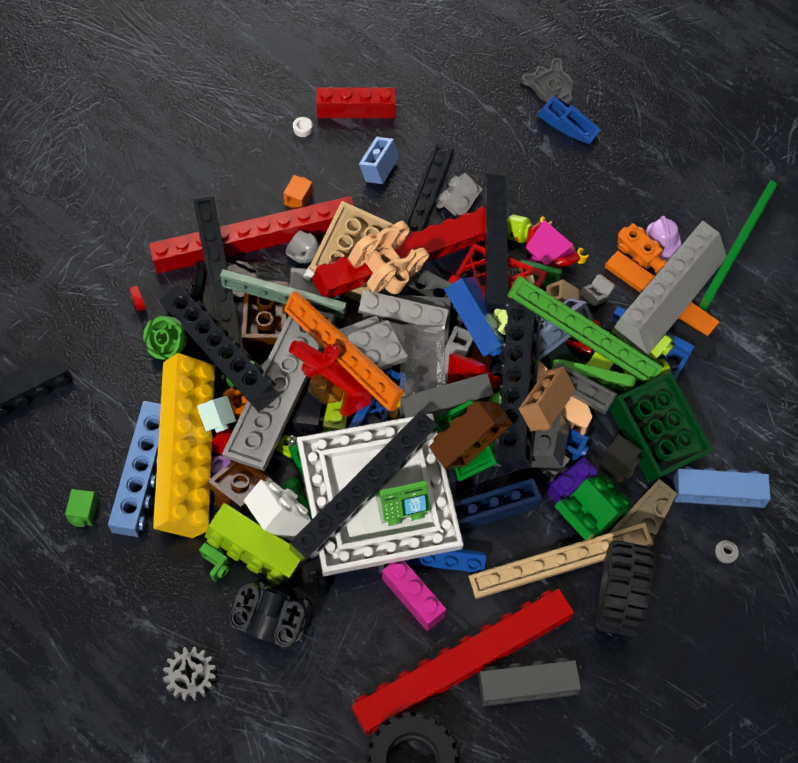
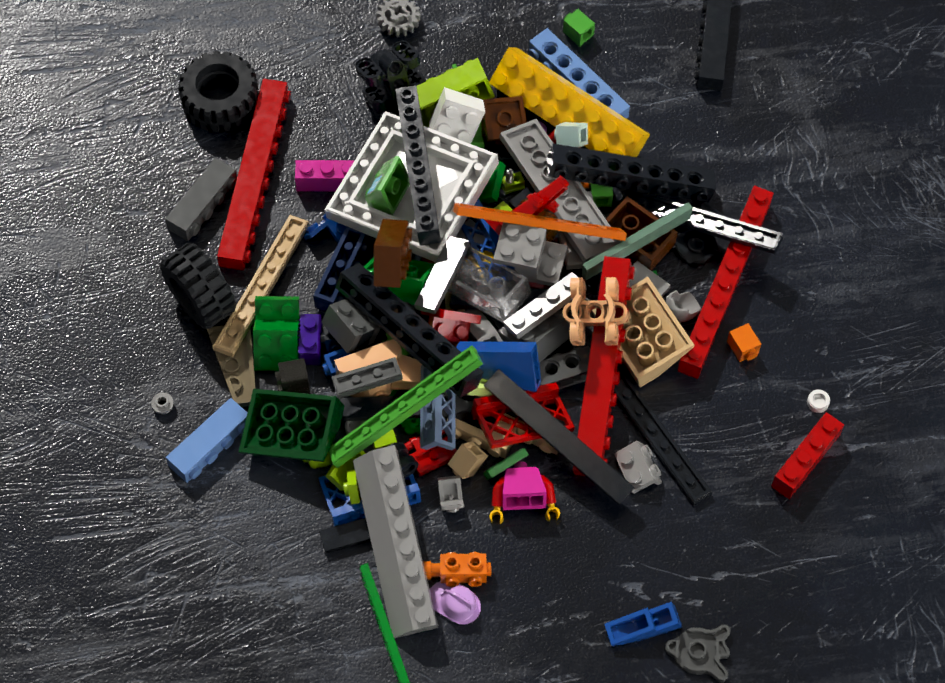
camera: 130 degrees right, 0 degrees up
(137, 298) = (730, 163): red tile -> none
(165, 337) = (675, 152): bright green cylinder -> none
(379, 160) = (724, 424): medium blue brick -> none
(518, 228) = (565, 483): lime head -> none
(547, 399) = (372, 327): medium nougat brick -> none
(601, 376) = (378, 403): bright green beam -> none
(640, 278) = (430, 545): orange tile -> none

